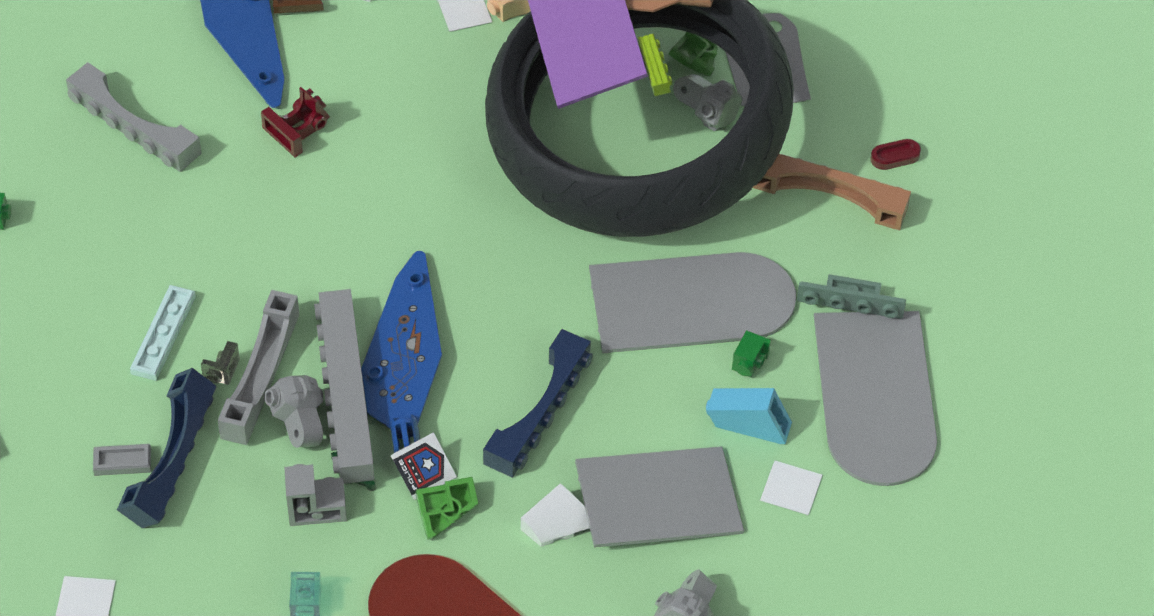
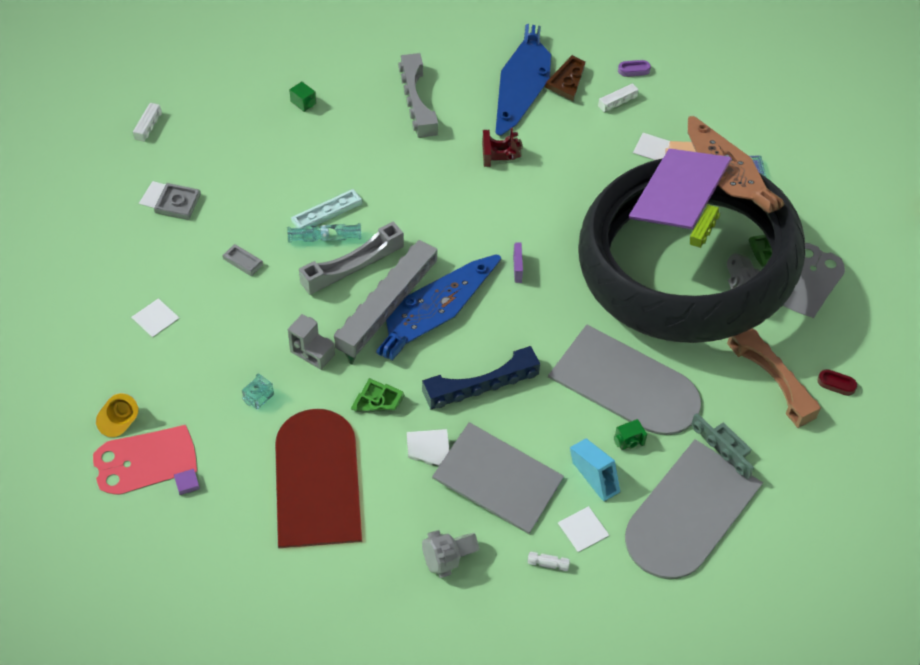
camera: 40 degrees right, 0 degrees up
(190, 398) = (302, 249): dark blue arch -> none
(210, 346) = (314, 233): none -> clear light blue piece
(225, 364) = (338, 246): clear smoke bracket -> none
(295, 403) = (350, 288): light grey piece -> none
(423, 464) = (386, 367): sticker -> none
(451, 244) = (518, 264): none -> medium lavender tile
(791, 545) = (548, 561): none -> white axle

